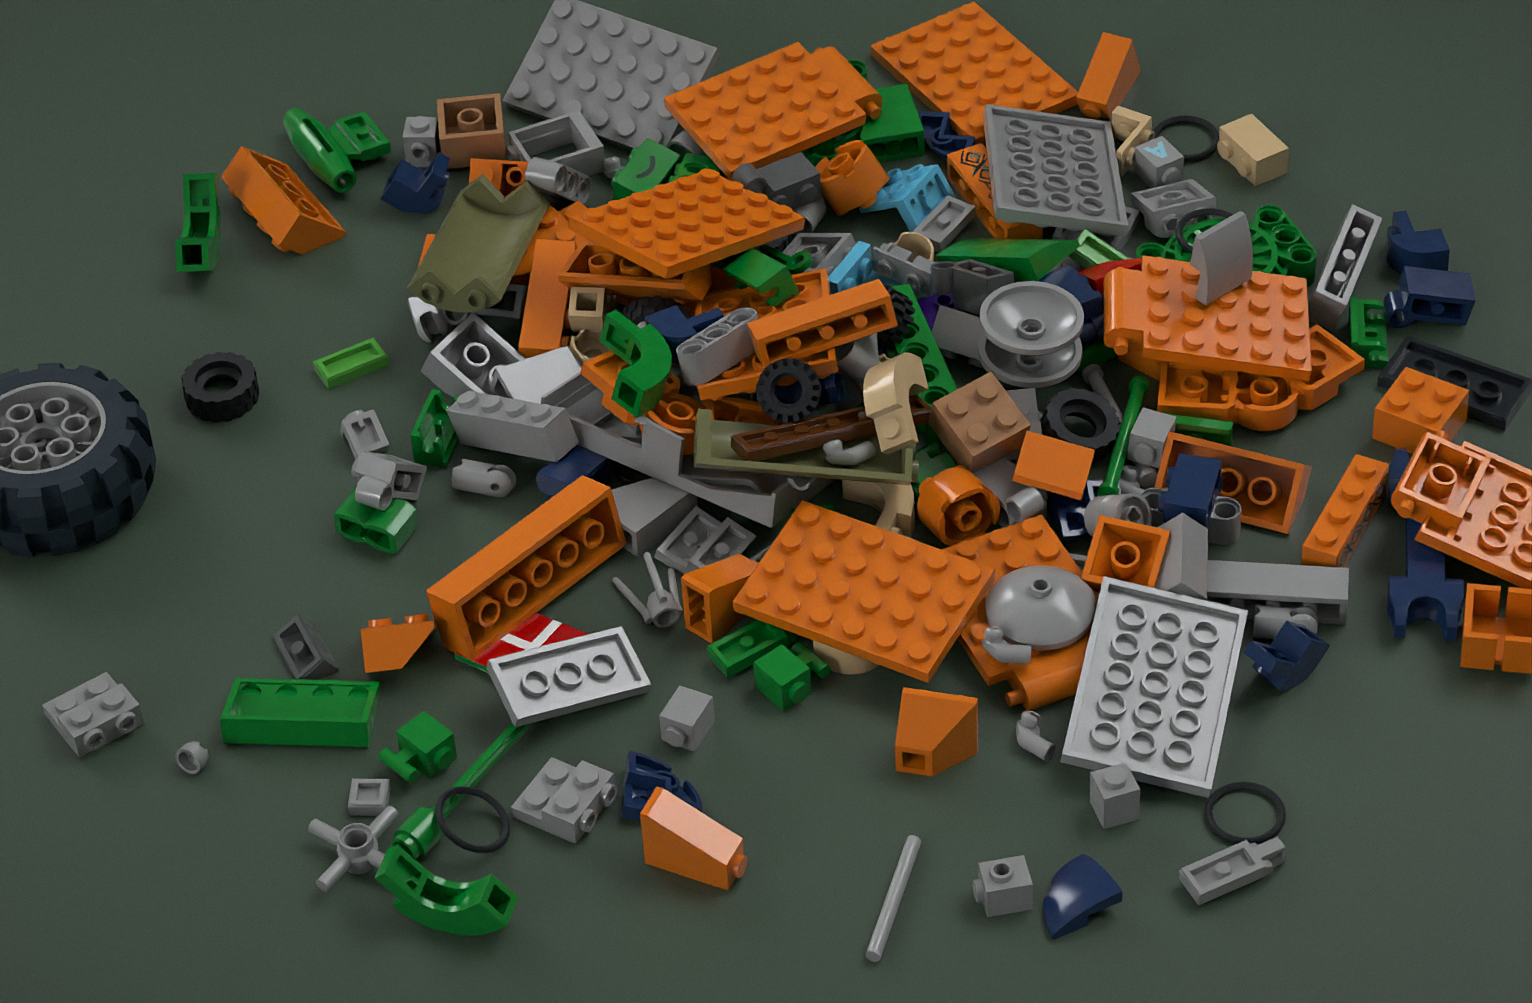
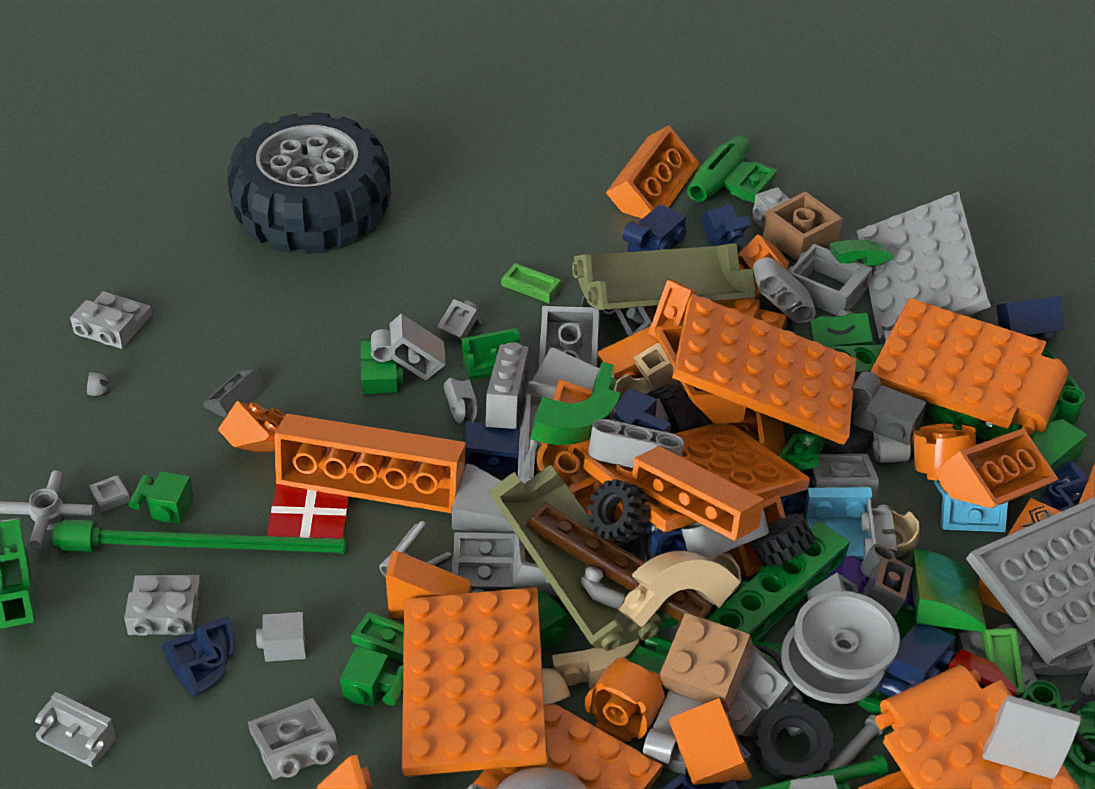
camera: 55 degrees right, 0 degrees up
(202, 224) = (590, 155): green arch -> none
(222, 405) = (455, 245): black tyre -> none
(300, 712) = (170, 418): green slope -> none
(375, 238) = (656, 231): none -> dark blue hinge
(459, 842) = (105, 588): black tyre -> none
(543, 256) = (672, 305): none -> orange slope
(556, 103) = (870, 252): none -> green slope
(568, 676) = (277, 542): light grey plate -> none
(678, 909) = (75, 729): none -> light grey hinge
(690, 842) = (140, 699): orange slope -> none
(737, 40) = (1032, 316): none -> dark blue hinge
(762, 274) = (757, 440): green hinge -> none
(817, 751) = (294, 738): none -> light grey plate
(915, 152) = (996, 471): none -> orange slope
(946, 222) = (959, 536): light grey plate -> none

